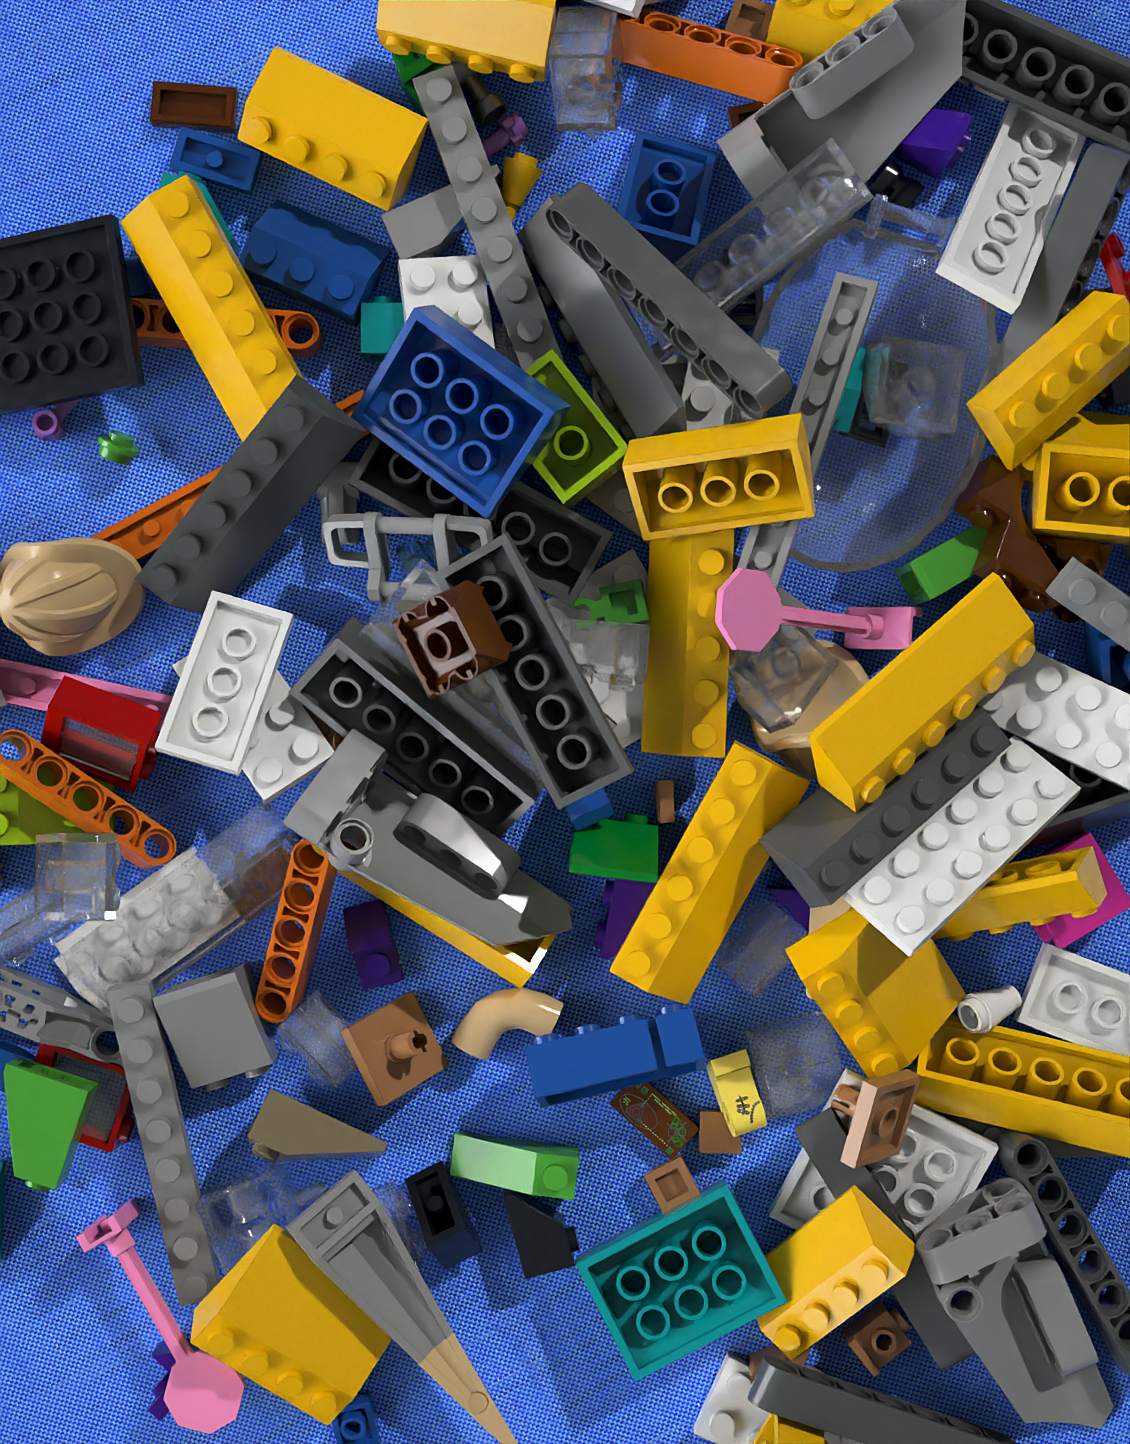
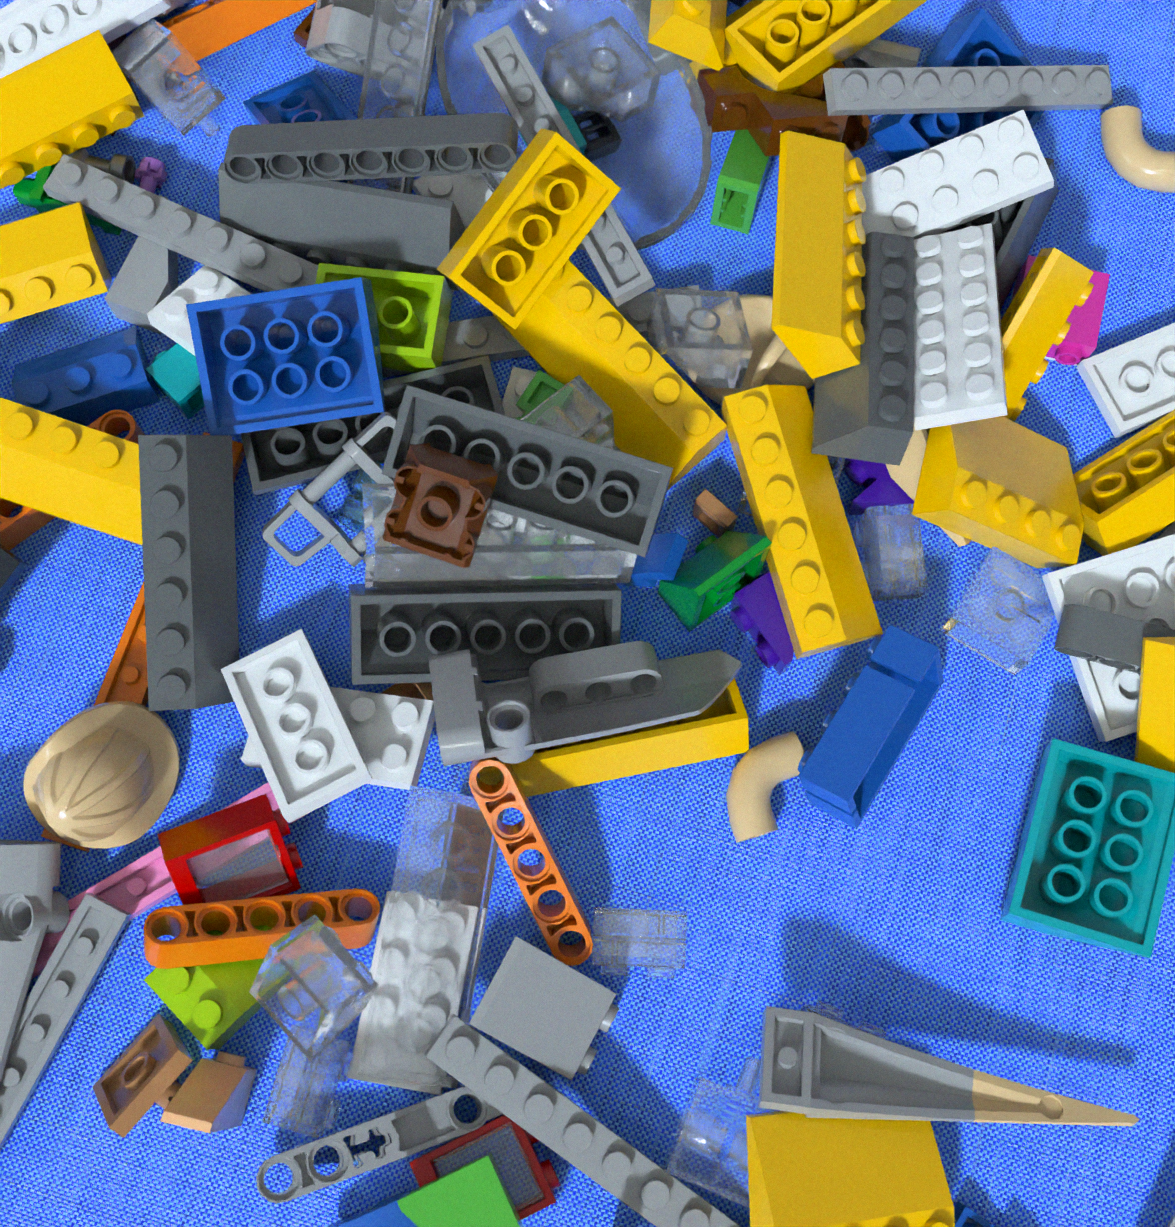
camera: 45 degrees left, 15 degrees down
(117, 447) = (48, 640): bright green plate -> none
(303, 1133) = (698, 1021): dark tan slope -> none
(340, 498) = (252, 514): light grey piece -> none
(372, 944) = (603, 830): dark purple slope -> none
(394, 1048) = (700, 888): medium nougat tile -> none
(443, 1216) = (869, 988): black slope -> none
(516, 1164) = (882, 891): bright green slope -> none
(518, 180) = (185, 191): yellow cone -> none
(540, 1235) = (957, 929): black slope -> none
(655, 1117) = (946, 754): reddish brown tile -> none
(671, 1183) = (1010, 789): medium nougat plate -> none
(715, 1135) = (1002, 718): medium nougat tile -> none
(737, 1093) = (985, 671): light yellow leg -> none
(752, 611) = (733, 269): bright pink piece -> none
(878, 1116) = (1102, 571): medium nougat tile -> none
(988, 1008) = (1091, 442): white cone -> none

